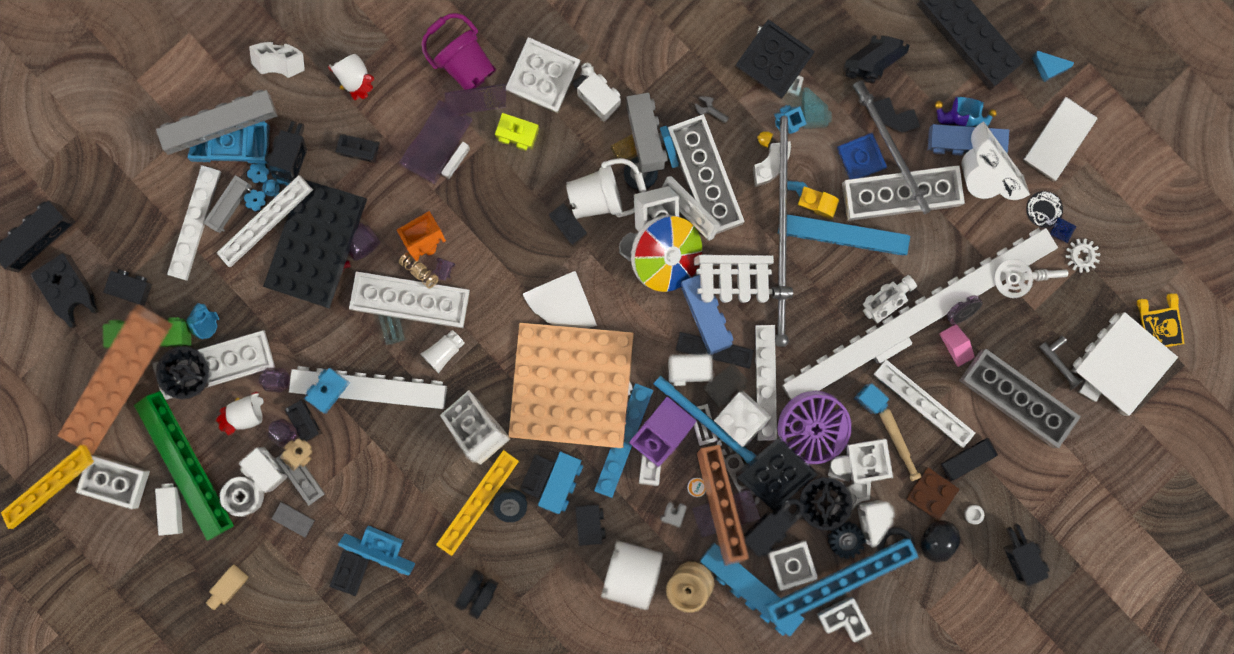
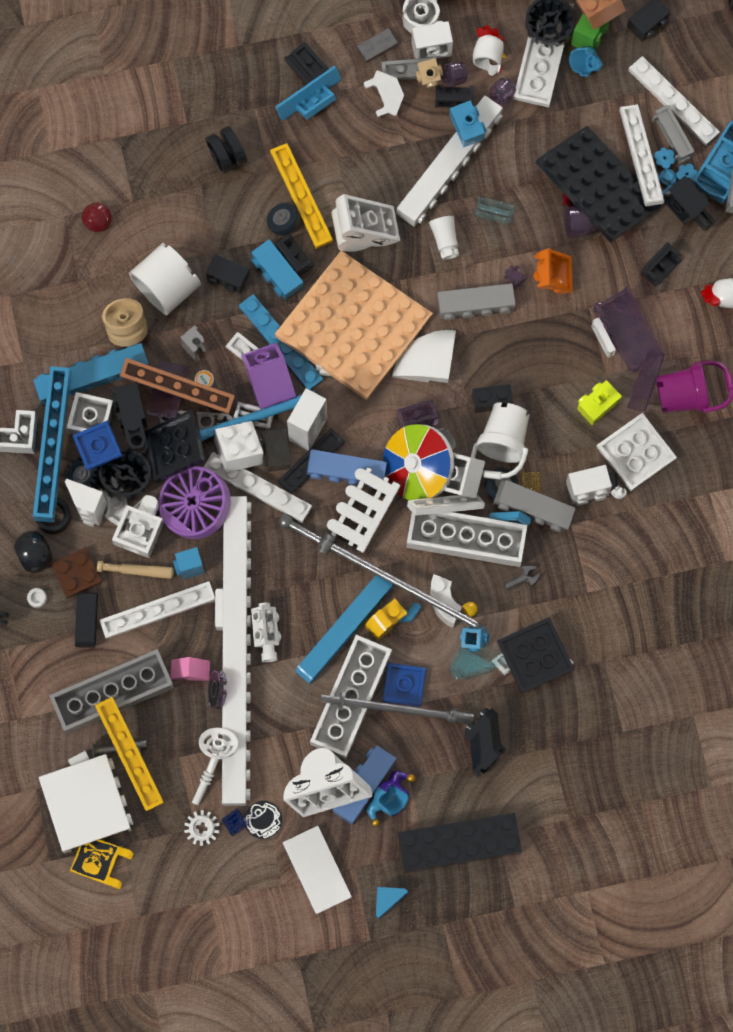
camera: 125 degrees right, 10 degrees down
(334, 480) = (389, 92): none -> white piece
(409, 300) = (505, 235): white plate -> none
(418, 270) = (524, 255): tan piece -> none
(486, 290) = (476, 301): none -> light grey brick
(623, 279) = (421, 413): none -> clear purple brick
(818, 541) = (97, 445): none -> blue tile
(901, 122) = (428, 727): black tile -> none
(1064, 351) = (129, 753): none -> yellow plate

